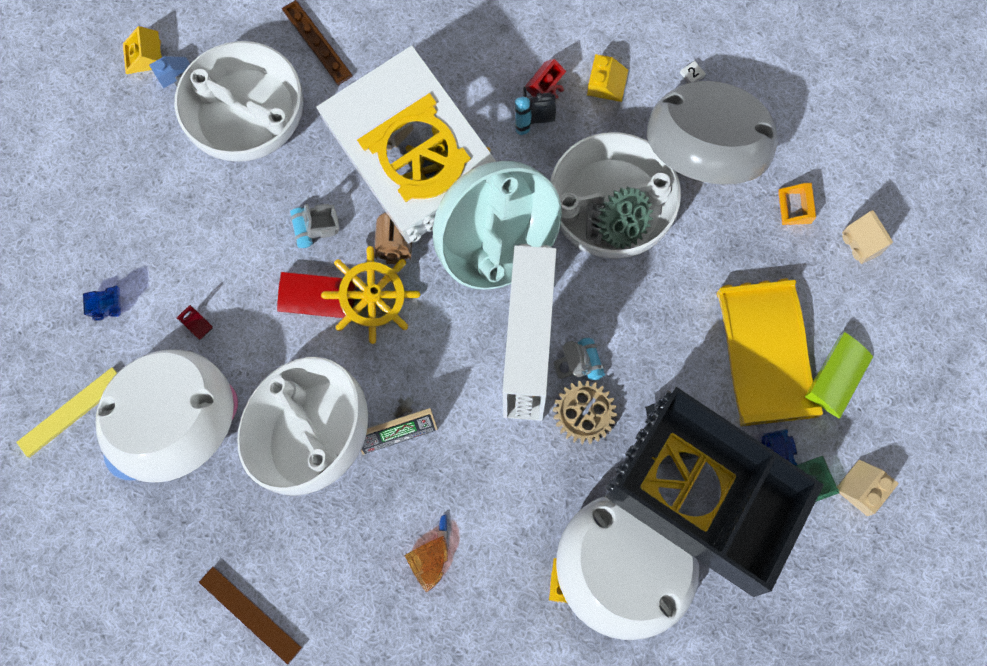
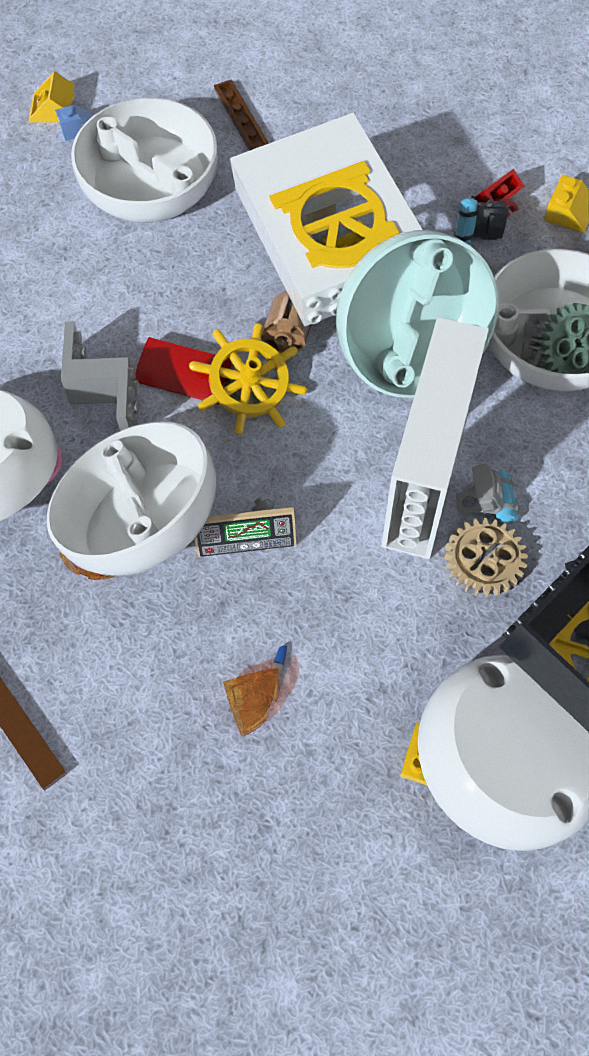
camera: 10 degrees right, 10 degrees down
(195, 322) = (34, 374): dark red bracket -> none
(250, 321) = (98, 379): none -> light grey bracket
(314, 223) = (198, 293): light grey piece -> none

